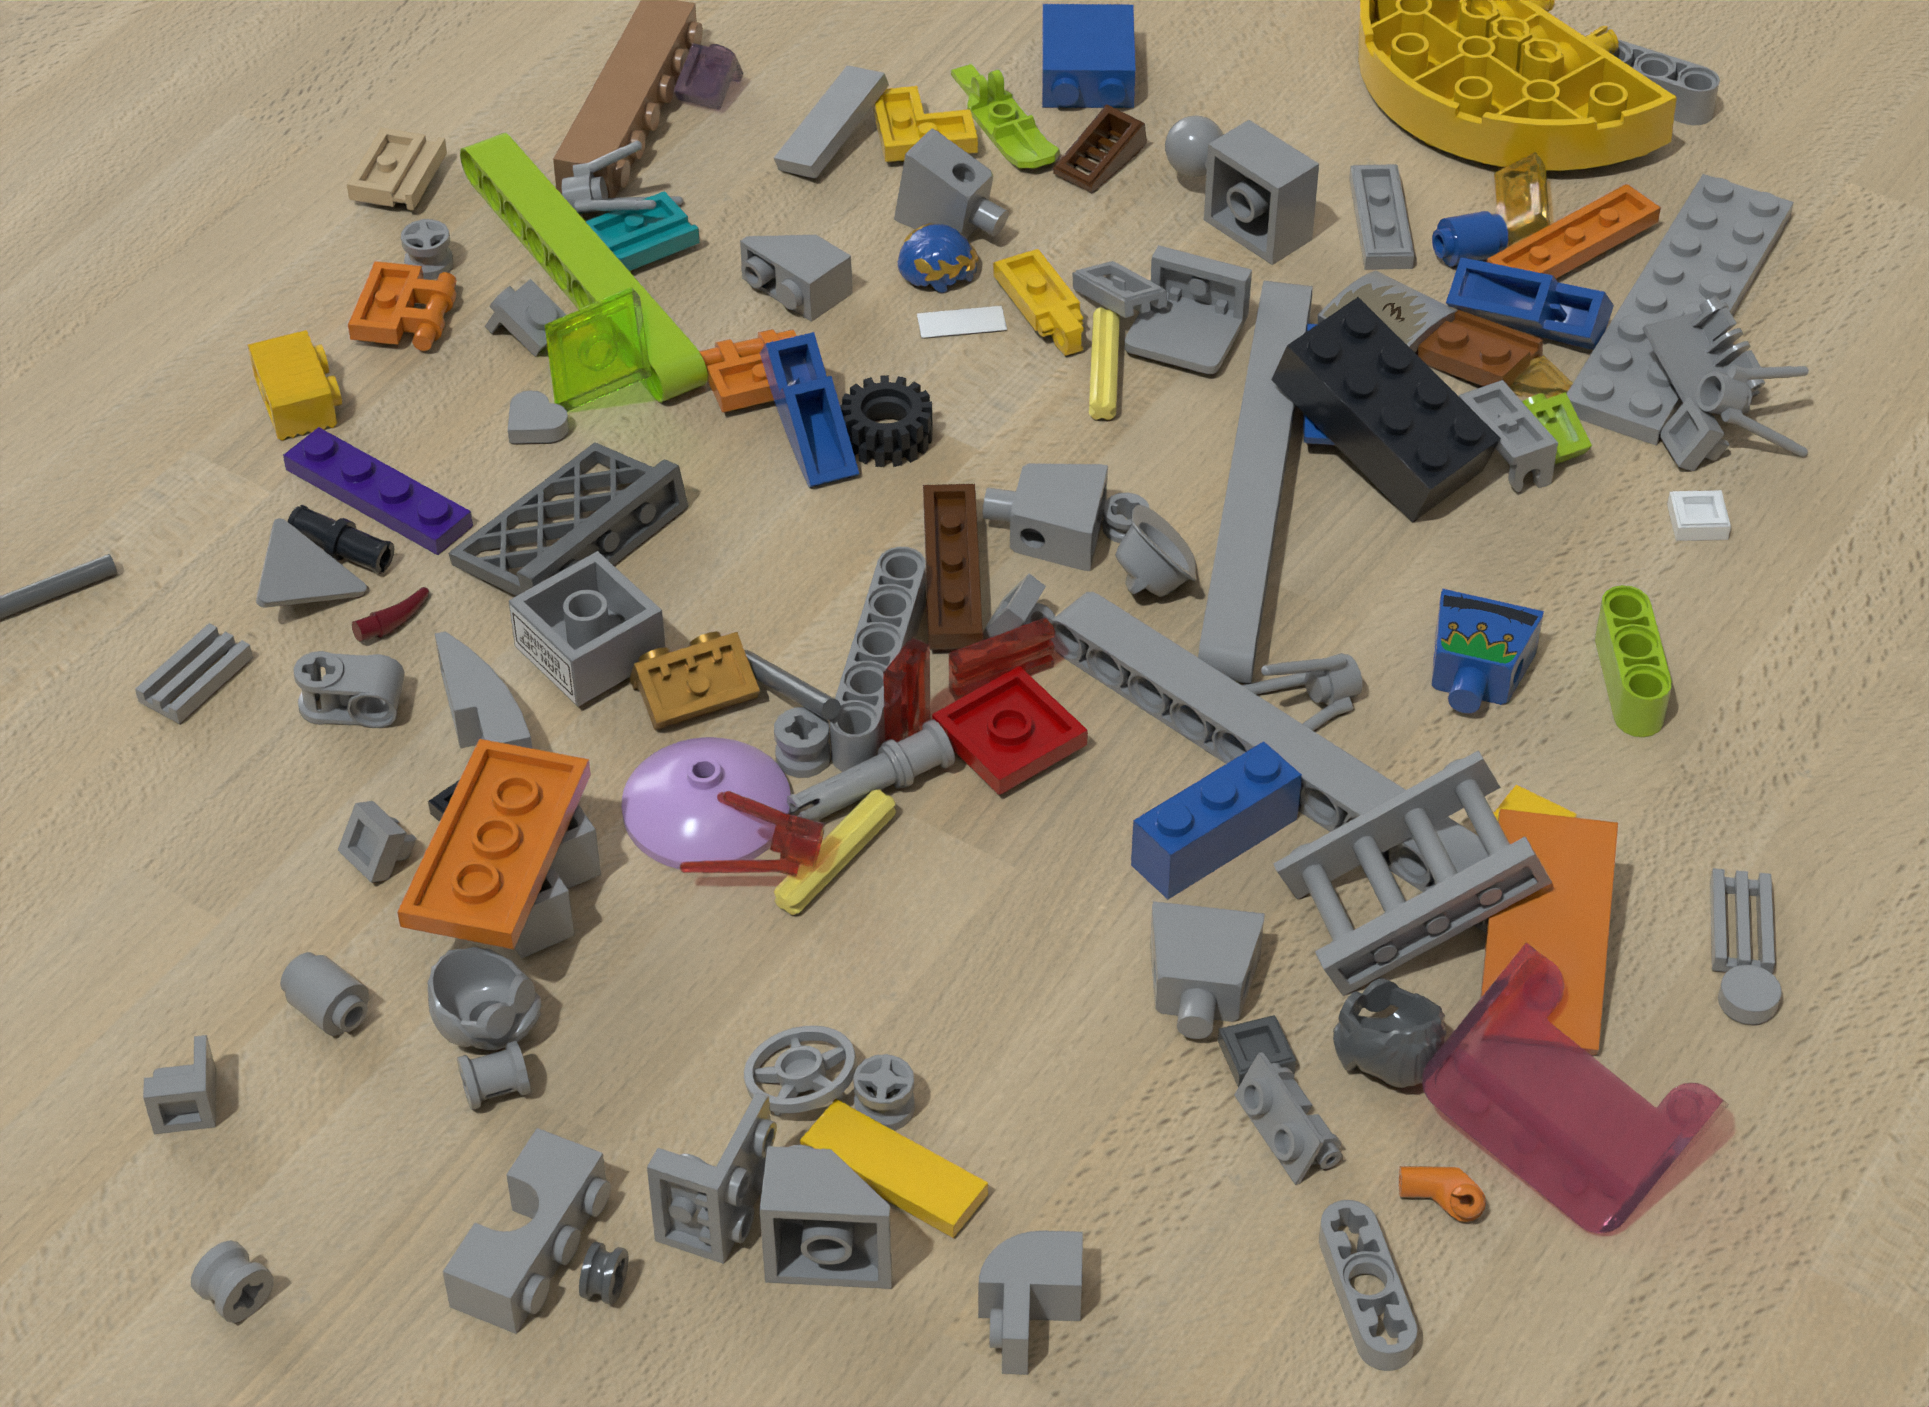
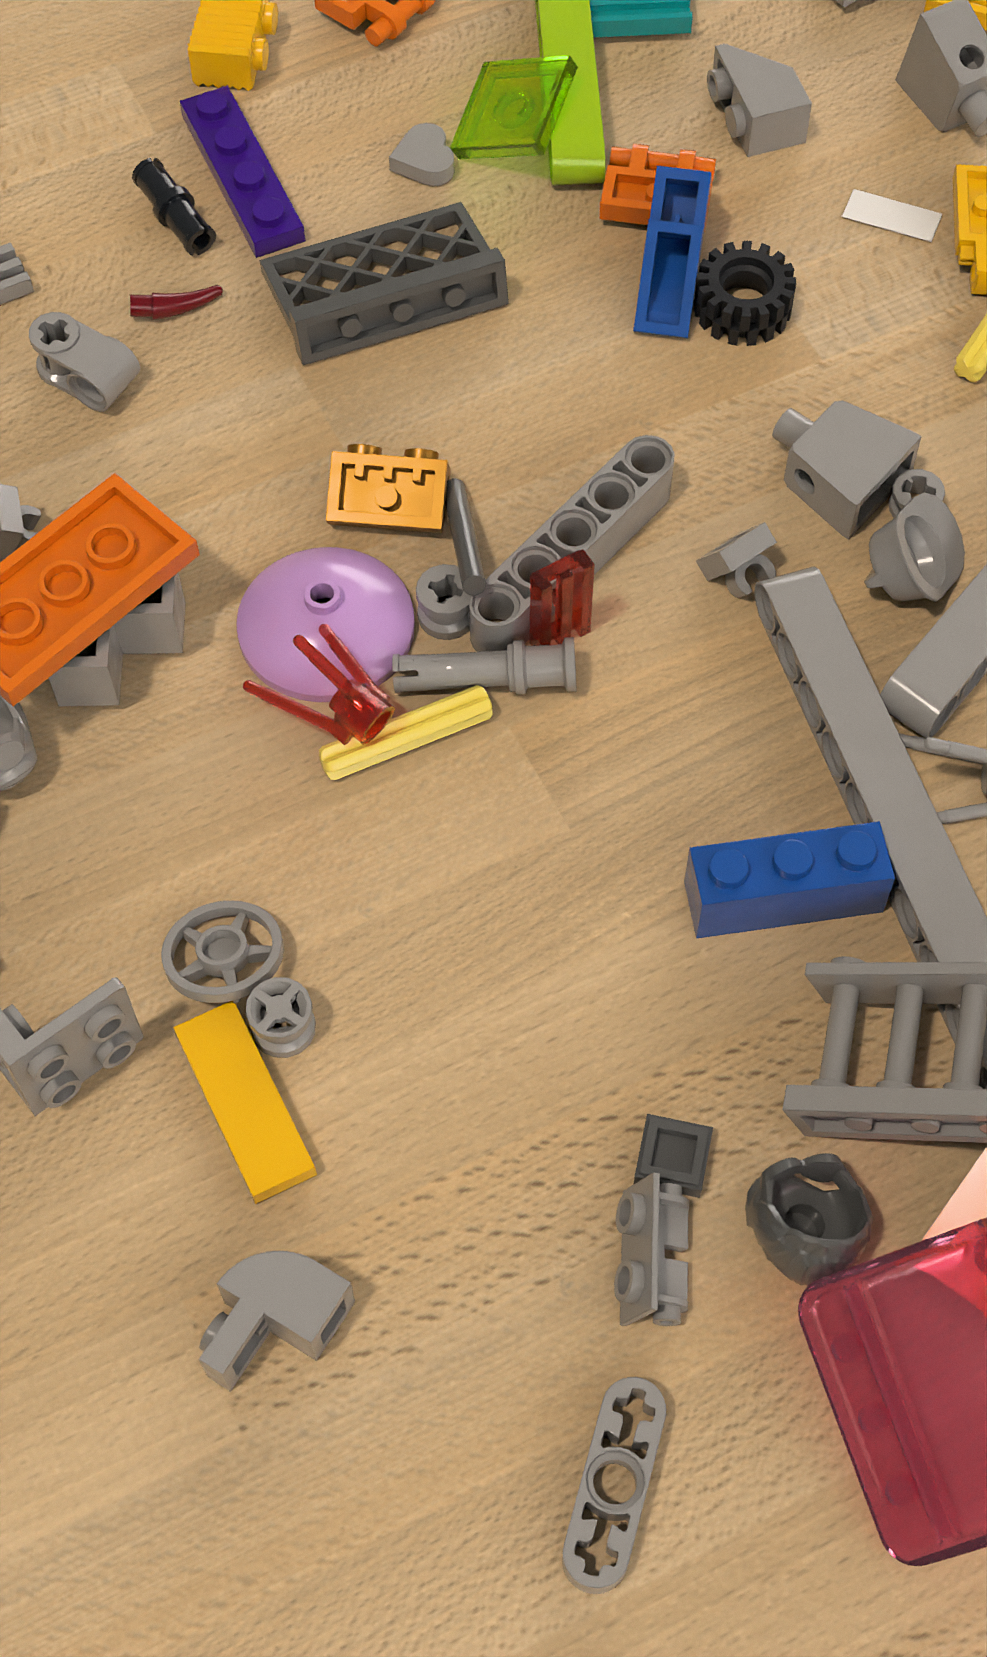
camera: 30 degrees right, 15 degrees up
(301, 571) = (115, 225): light grey piece -> none
(478, 697) = (178, 438): light grey slope -> none
(524, 315) = (476, 41): light grey bracket -> none
(586, 627) = (318, 392): light grey brick -> none
(822, 1222) = (108, 1129): light grey slope -> none
(936, 257) = (906, 137): blue hair -> none
(952, 566) = (708, 477): reddish brown plate -> none
(991, 658) = (689, 601): clear red tile -> none
(1010, 730) = (651, 680): red plate -> none
(1203, 963) = (673, 1036): light grey torso -> none
(1447, 1187) = (767, 1420): orange arm -> none

